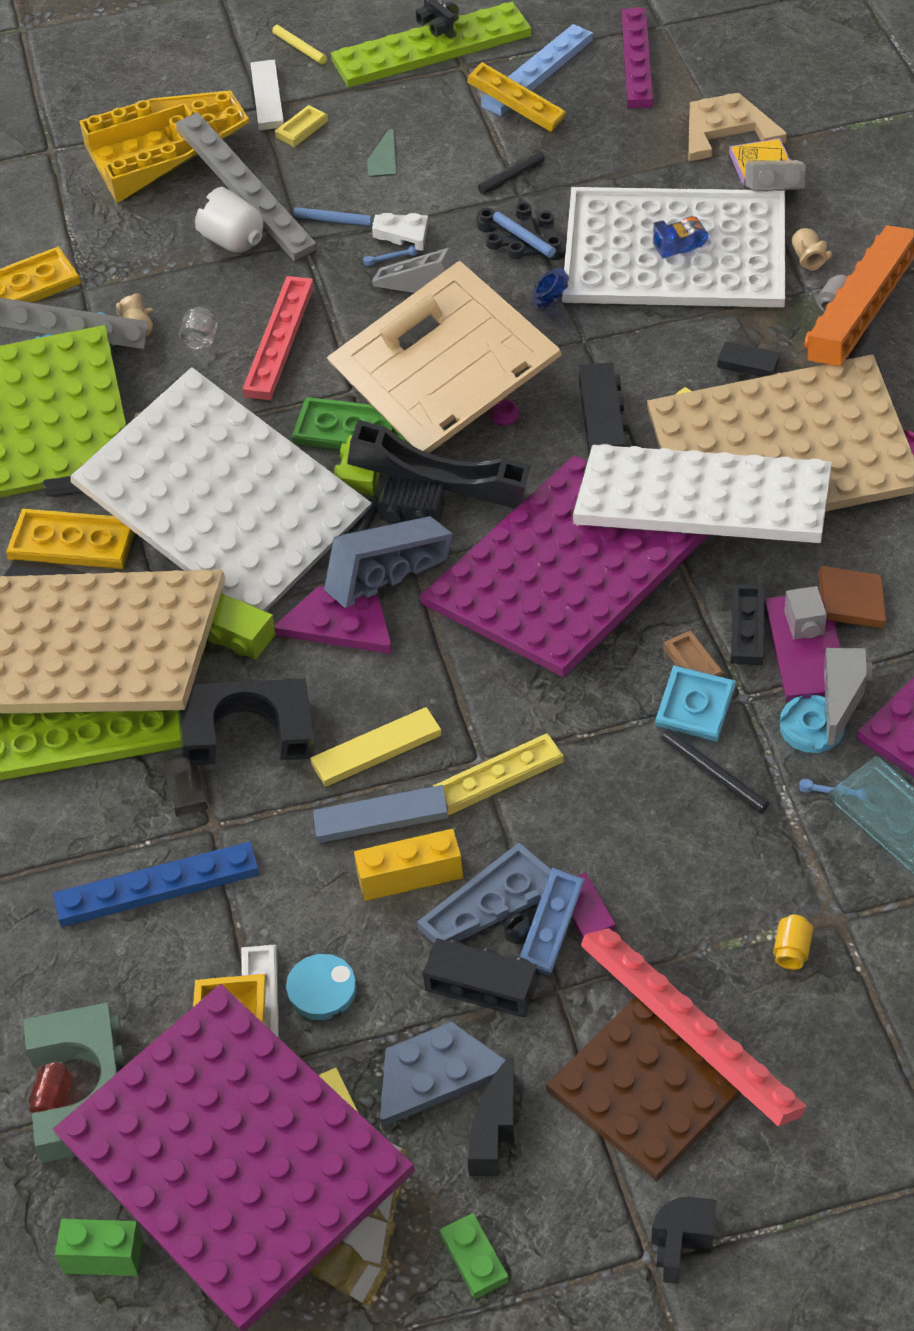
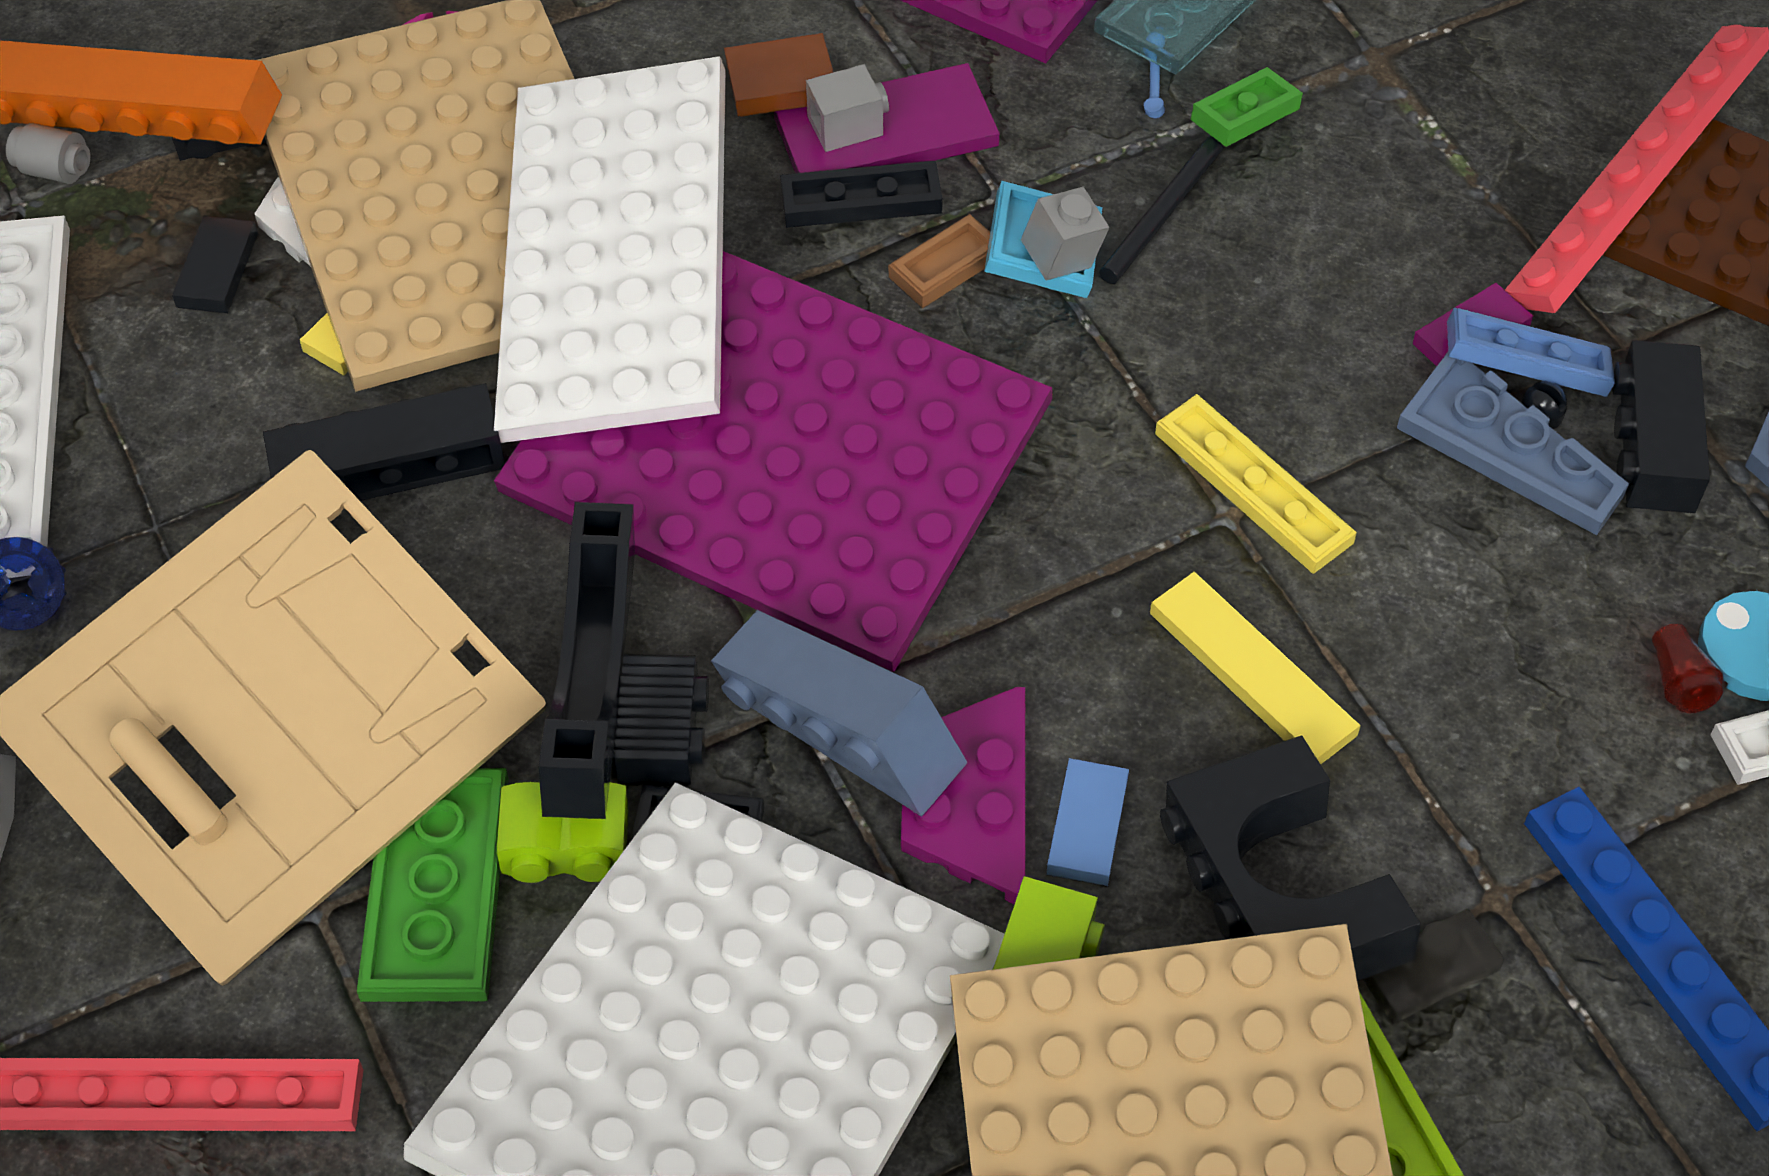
camera: 105 degrees left, 5 degrees up
(308, 662) = (1087, 822): none -> medium blue tile
(311, 938) = (1686, 671): none -> clear red cone
(380, 814) = (1404, 625): sand blue tile -> none
(408, 864) = (1499, 555): yellow brick -> none
(677, 693) = (1064, 233): none -> light grey brick
(787, 823) = (1246, 106): none -> bright green plate
(793, 942) = (1448, 83): yellow brick -> none
(805, 724) = (1038, 108): medium azure tile -> none
(844, 686) = (994, 52): light grey slope -> none

